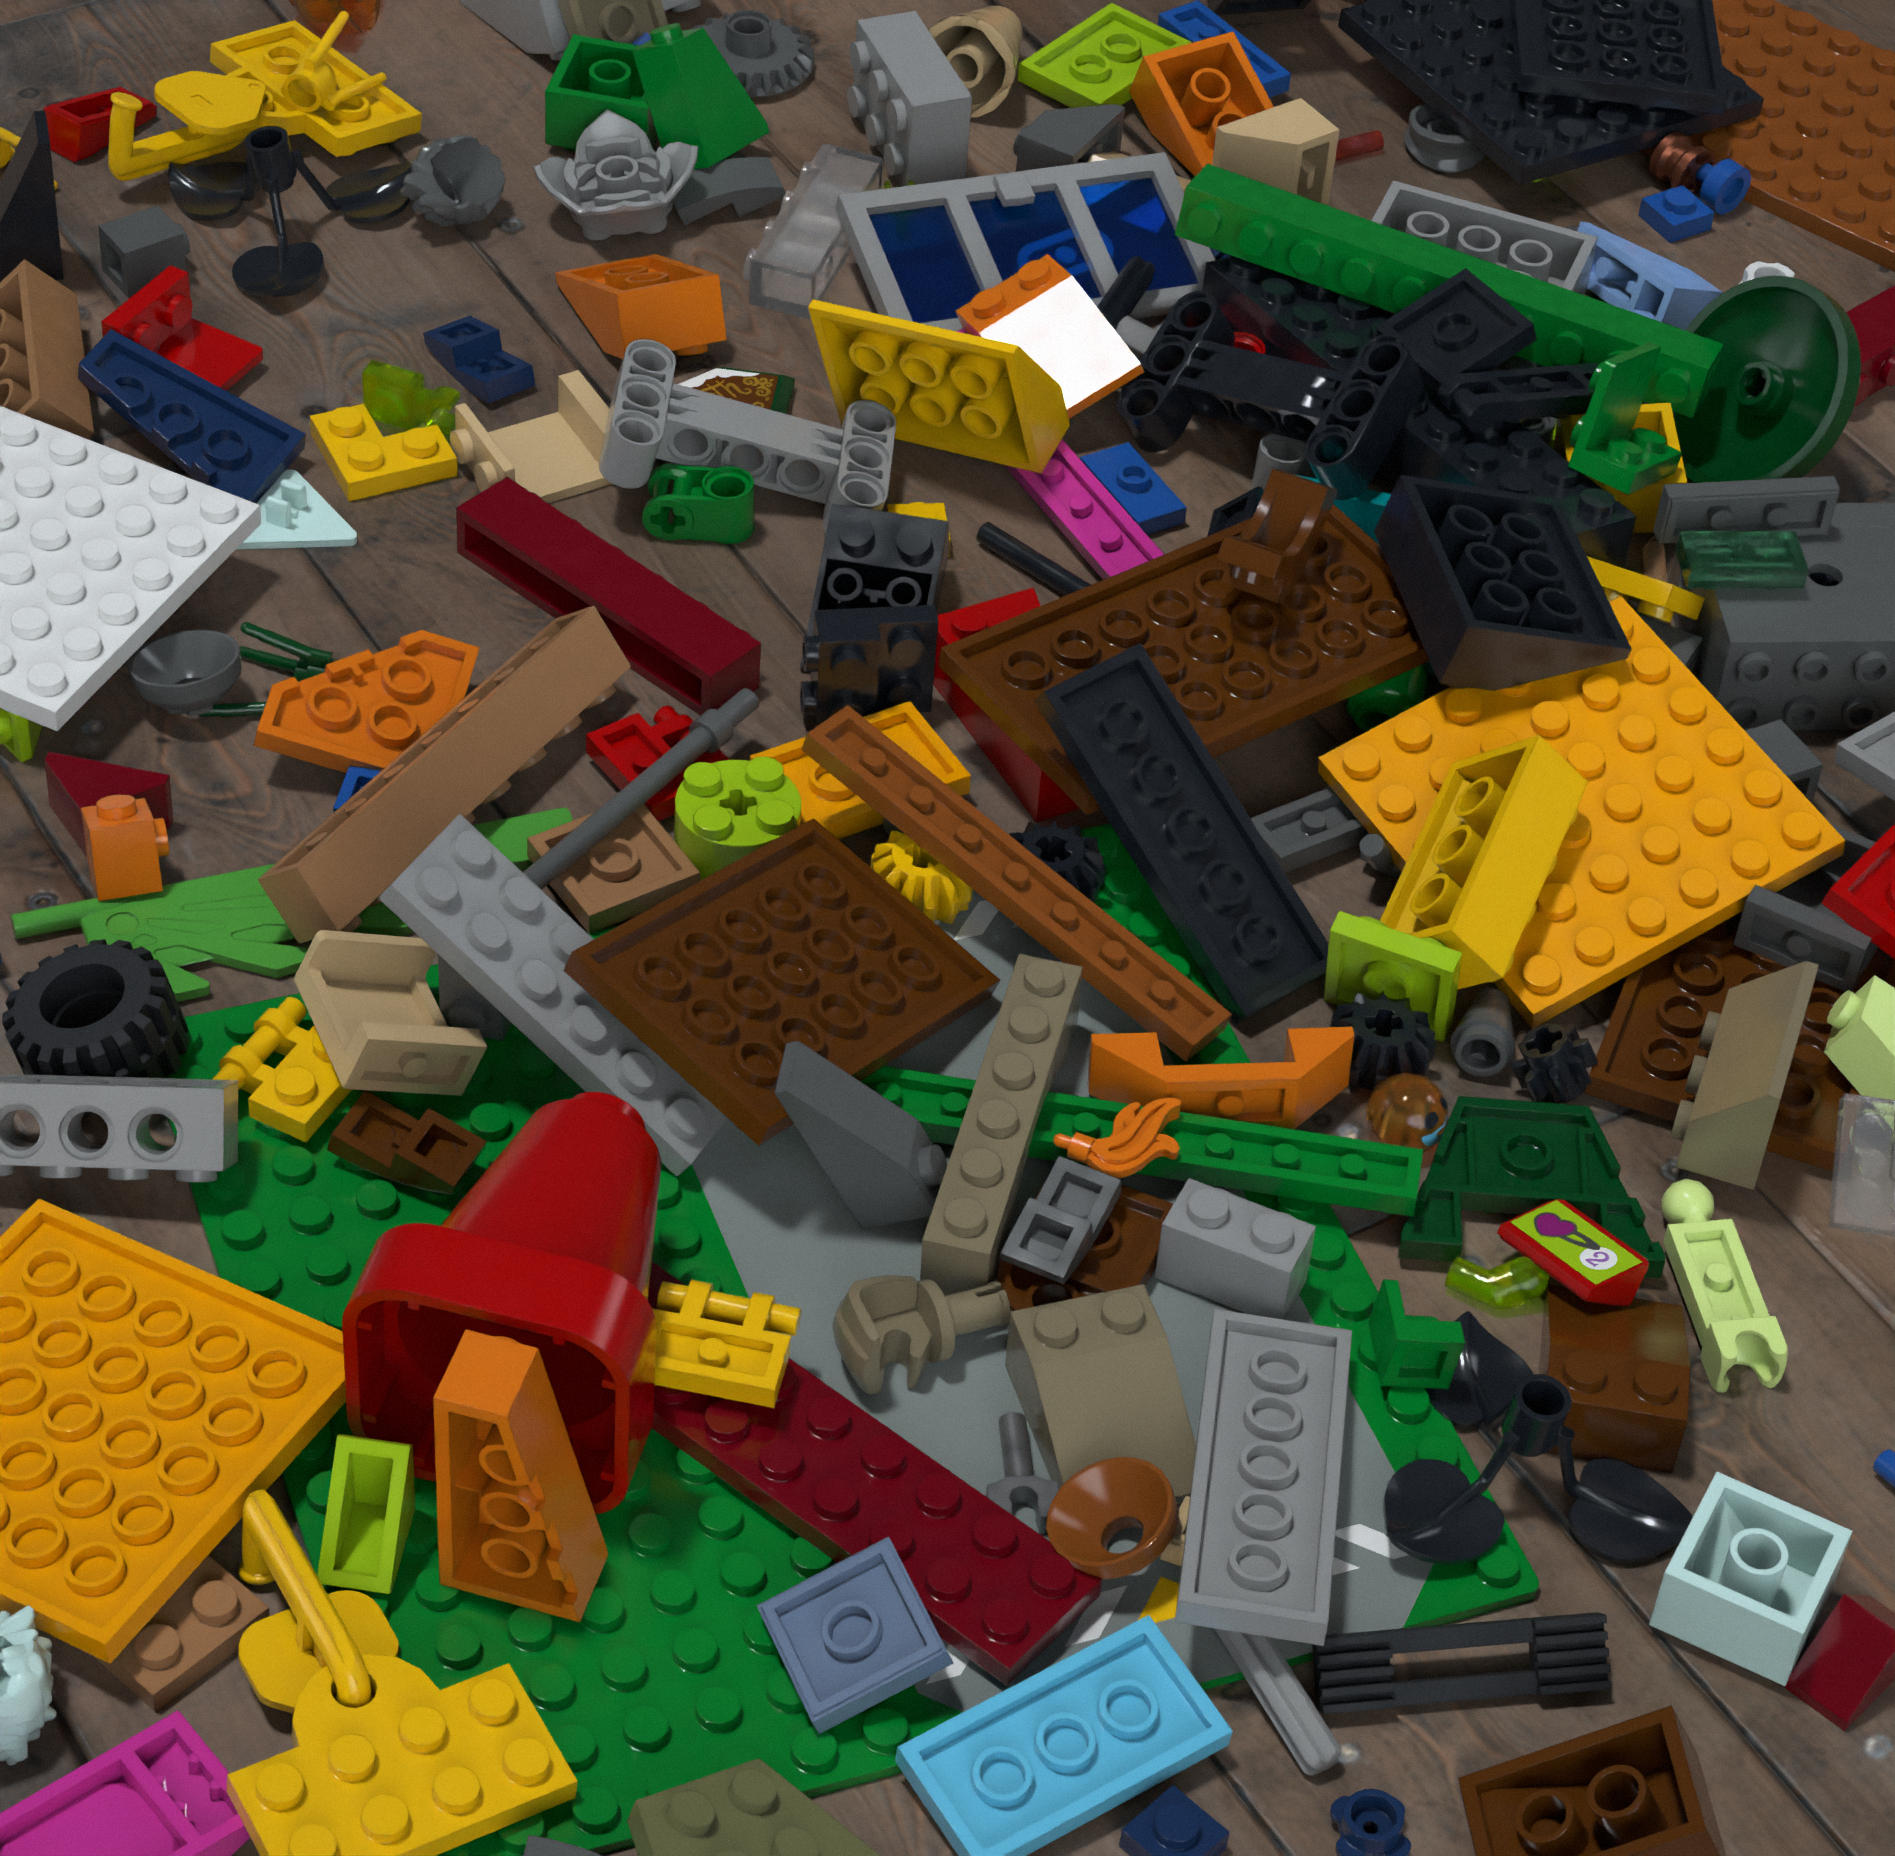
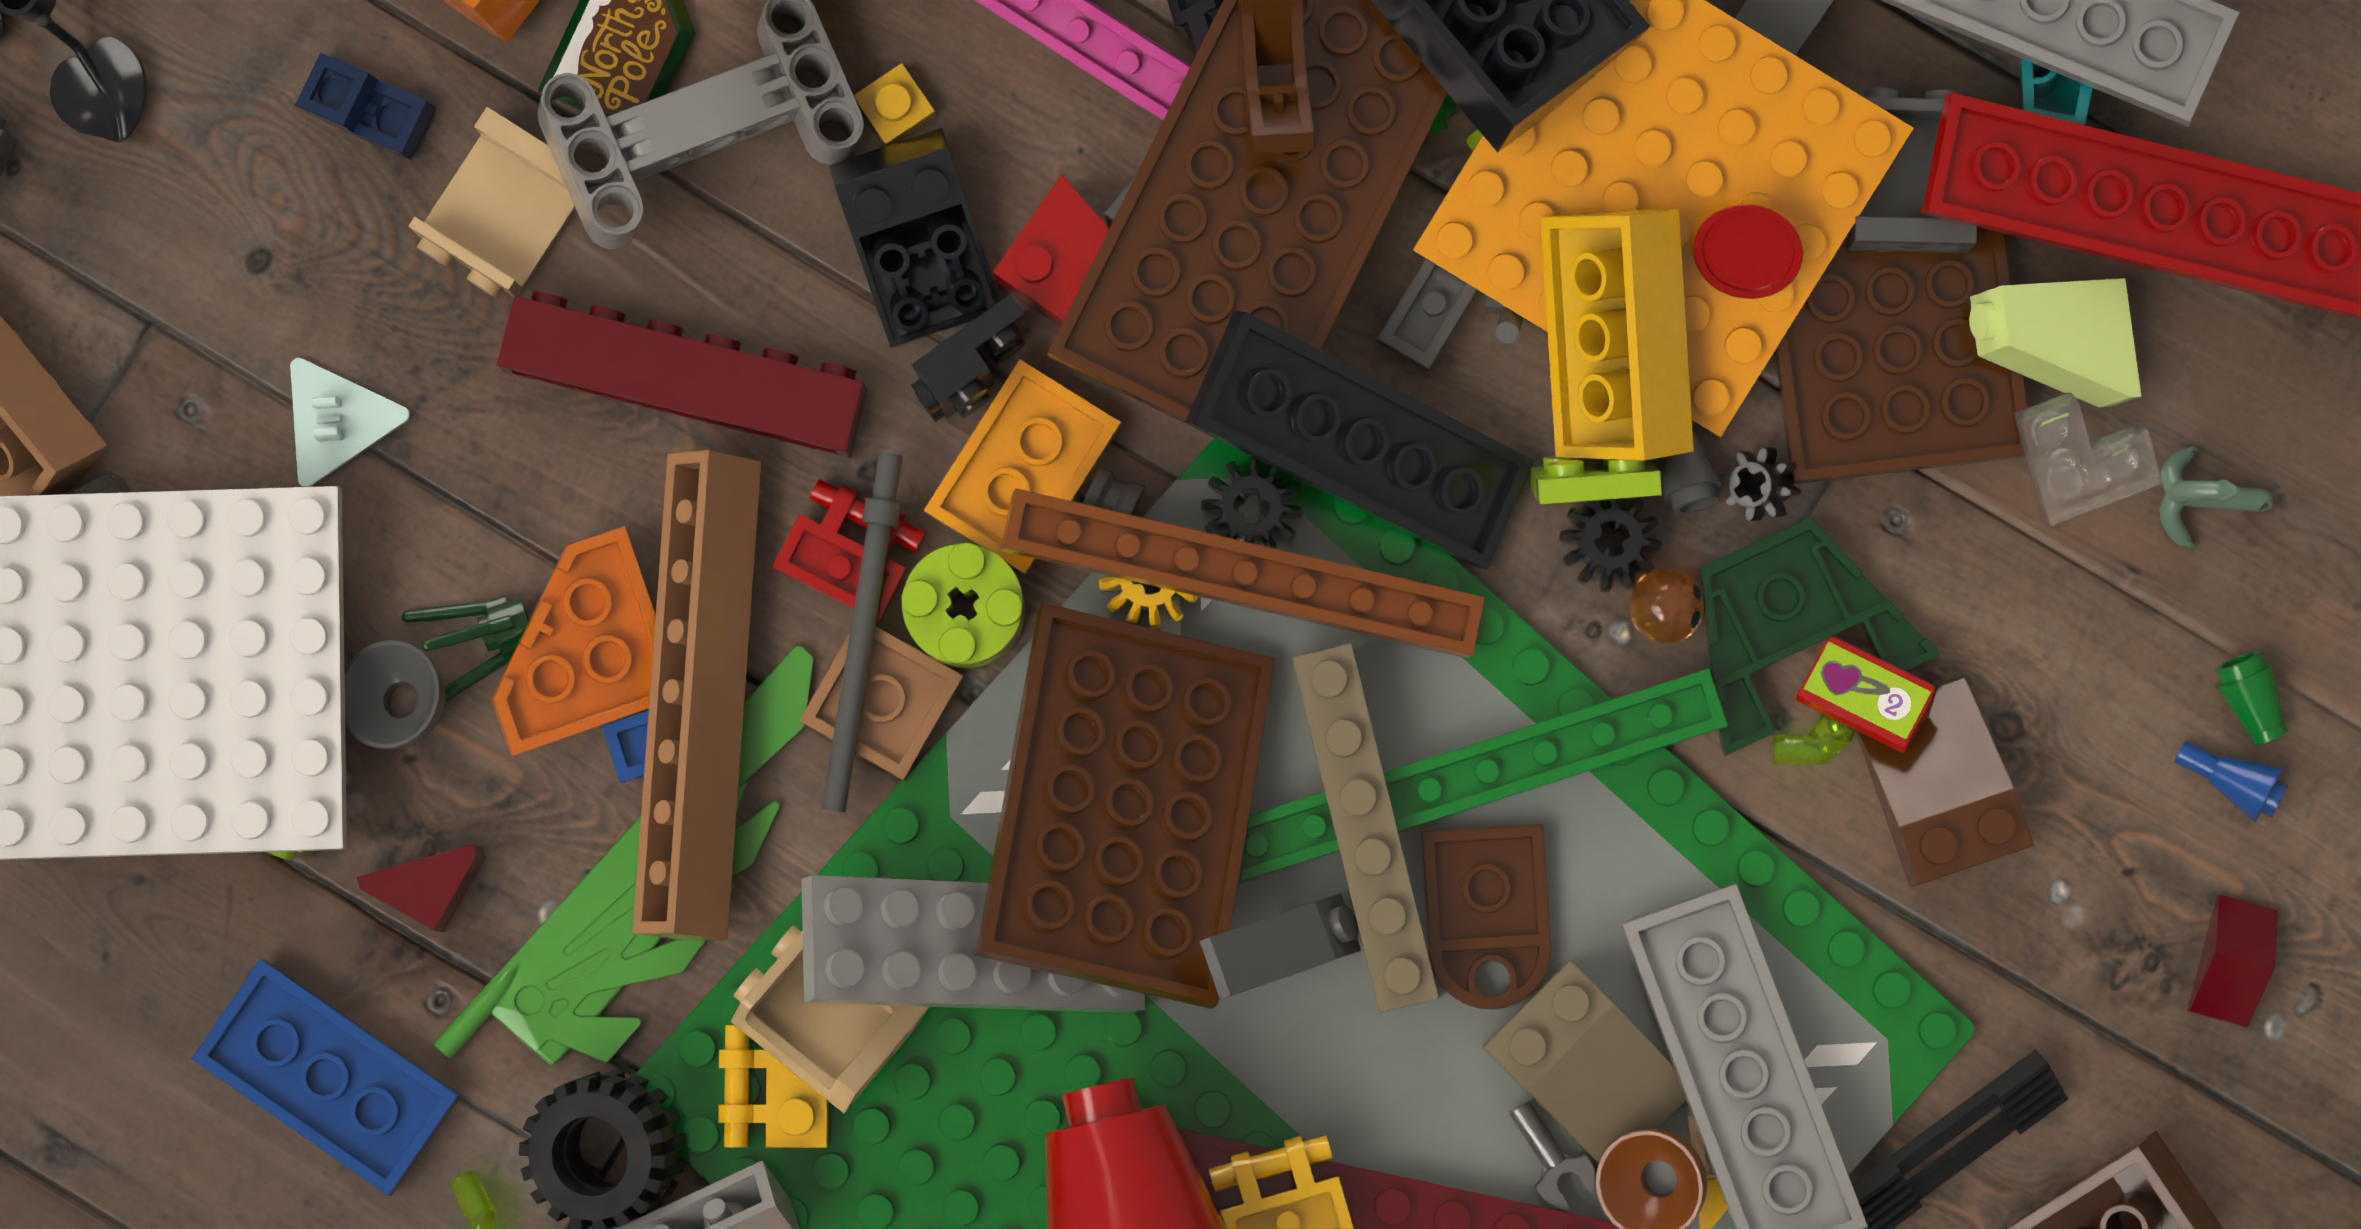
camera: 15 degrees left, 40 degrees up
(124, 847) = (486, 937): orange brick -> none
(163, 322) = (100, 275): red bracket -> none
(190, 419) = (192, 374): dark blue wing -> none
(375, 464) = (363, 307): yellow plate -> none
(400, 399) = (334, 222): clear neon green plate -> none
(414, 1152) = (915, 1116): reddish brown slope -> none
(704, 501) = (684, 202): green piece -> none
(909, 1324) = (1402, 1067): dark tan piece -> none
(1029, 559) = (1039, 92): black bar -> none
(1062, 1221) = (1464, 908): dark grey slope -> none
(1133, 1141) = (1480, 799): orange piece -> none
(1234, 1251) = (1611, 856): light grey brick -> none
(1272, 1093) = (1437, 707): orange slope -> none
(1410, 1347) = (1785, 864): green panel -> none
(1448, 1522) = (1876, 1015): black plant -> none
(1637, 847) = (1748, 251): none -> red piece
(1720, 1289) = (1986, 647): yellowish green plate -> none
(1742, 1076) = (1933, 446): dark tan slope -> none
(1750, 1578) = (2137, 957): light aqua slope -> none

